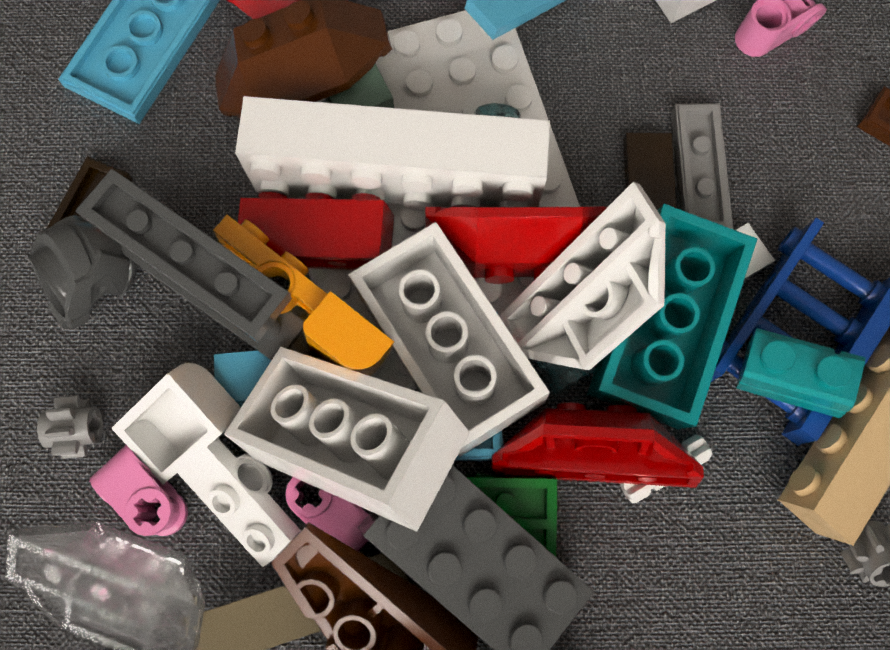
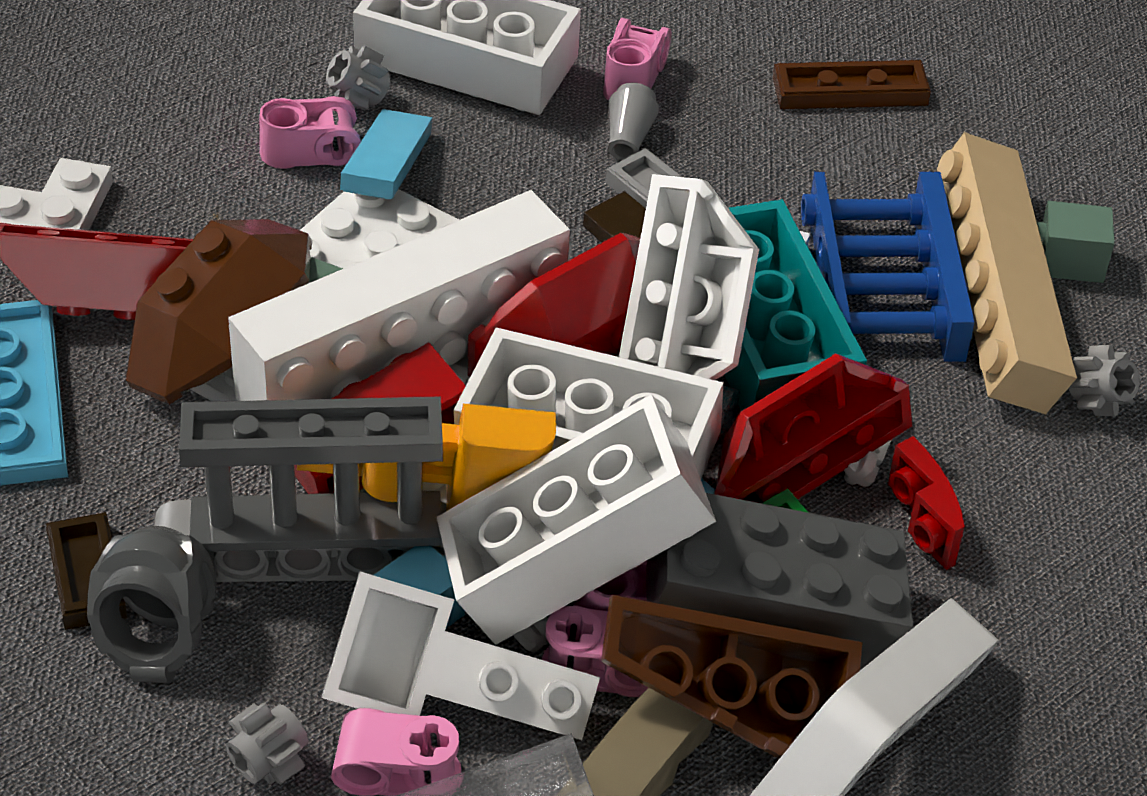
camera: 40 degrees left, 30 degrees down
(645, 578) = (936, 513): none -> red slope
(731, 69) = (630, 118): none -> light grey cone
(801, 373) = (910, 273): teal brick -> none

